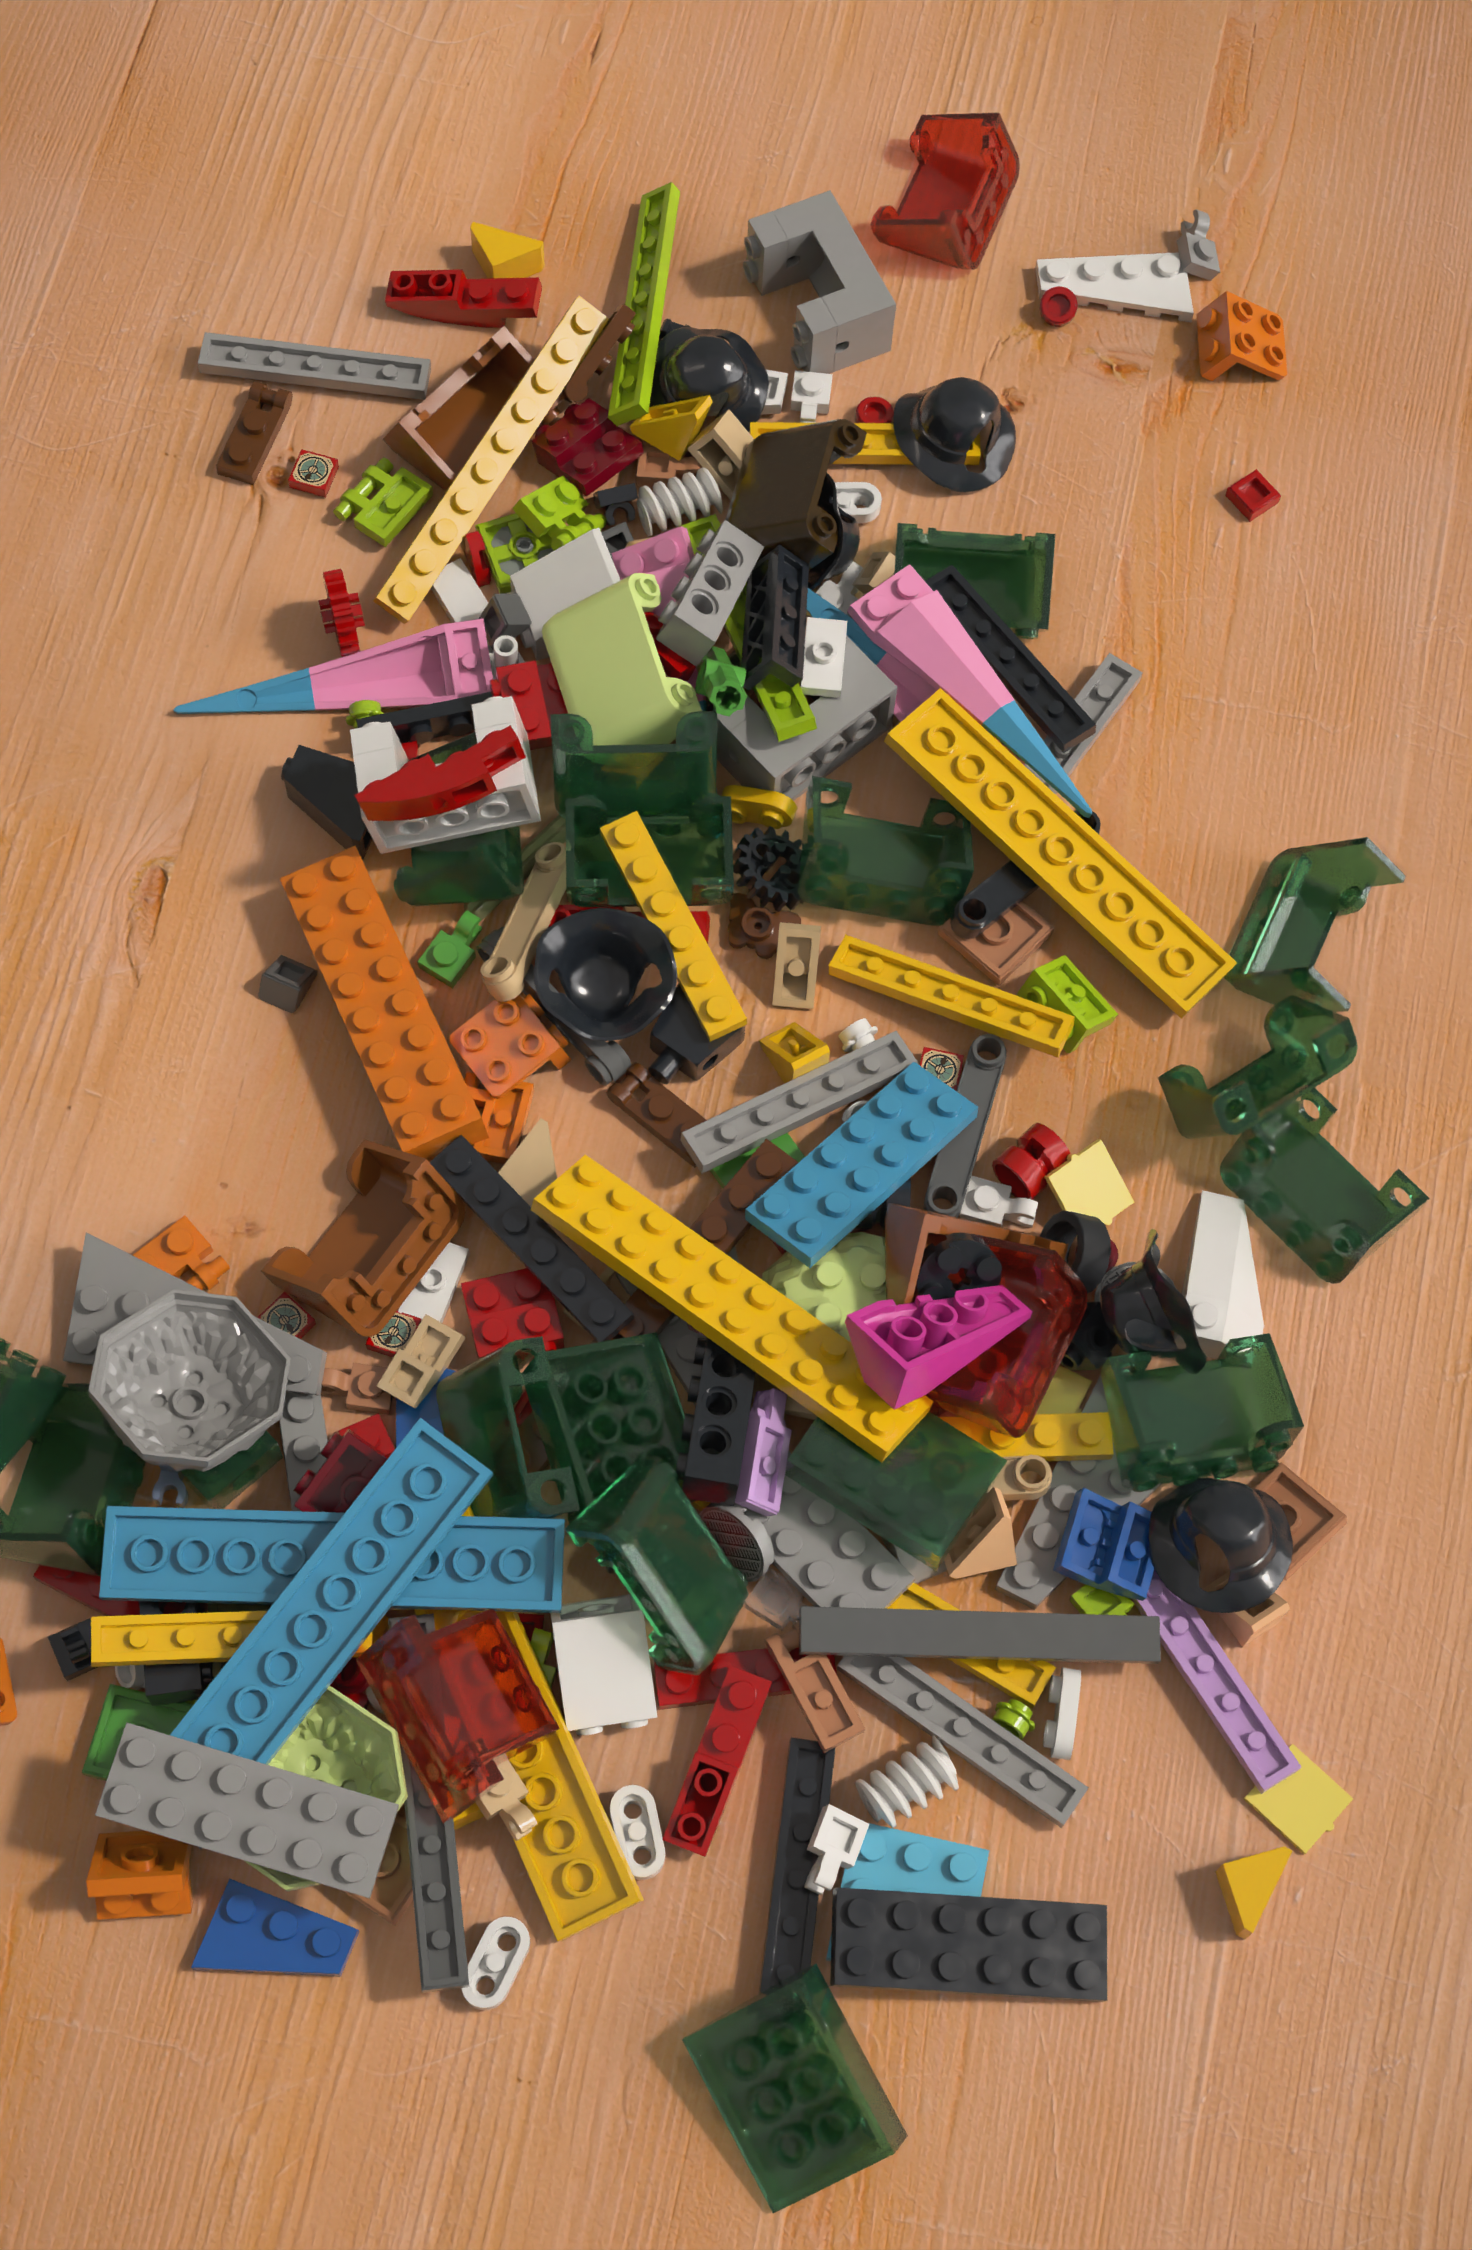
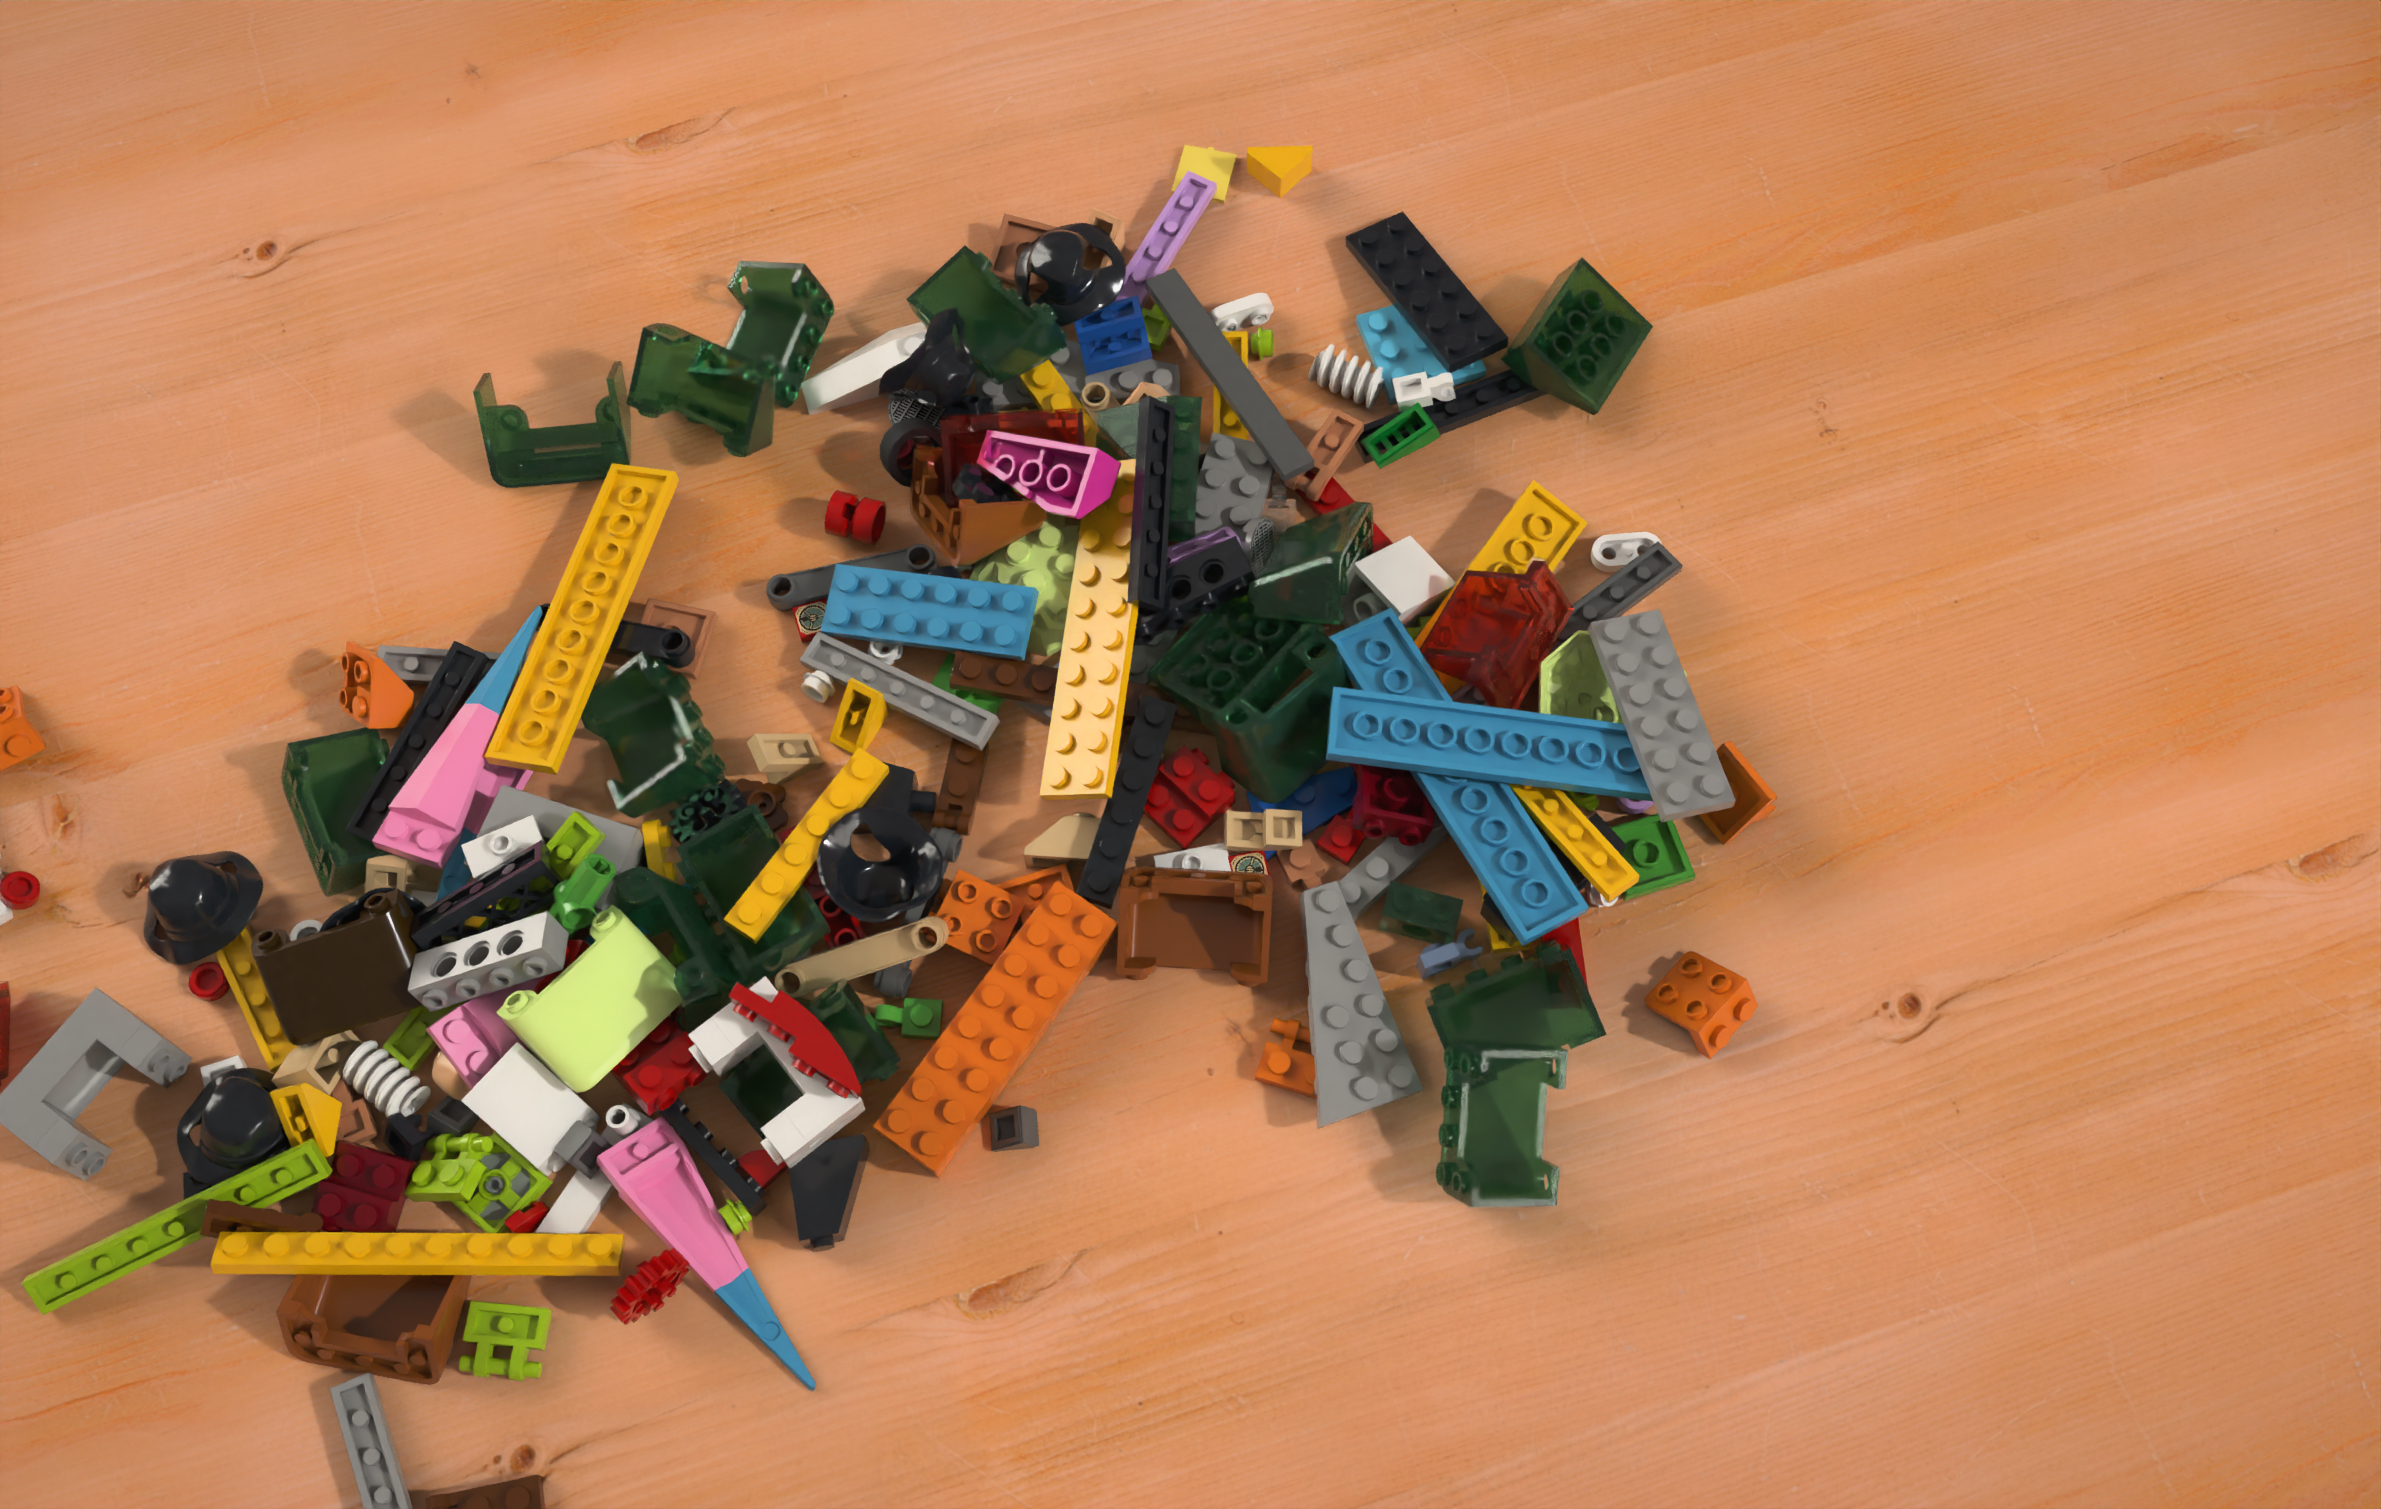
camera: 115 degrees left, 0 degrees up
(73, 1649) = (1615, 940): black tile -> none
(189, 1380) = (1397, 940): light grey rock -> none
(272, 1935) = (1716, 698): blue wing -> none
(288, 1316) = (1288, 953): tile -> none
(313, 473) = (504, 1424): tile -> none
(453, 299) = (243, 1402): red slope -> none
(506, 253) = (173, 1399): yellow slope -> none
(639, 1832) = (1483, 516): white plate -> none
(717, 1761) = (1414, 494): red slope -> none
(781, 1816) = (1404, 421): none -> green slope
(811, 394) = (214, 1041): white plate -> none
(828, 1415) = (1151, 504): none -> black plate
(951, 995) = (750, 634): yellow plate -> none
(968, 1733) = (1291, 350): light grey plate -> none
(991, 1204) = (900, 532): white plate -> none
(1067, 990) = (708, 561): lime bracket -> none
(1085, 645) = (373, 690): none -> orange slope
(1090, 1184) = (853, 473): light yellow piece -> none
(1253, 495) = (155, 654): red tile -> none

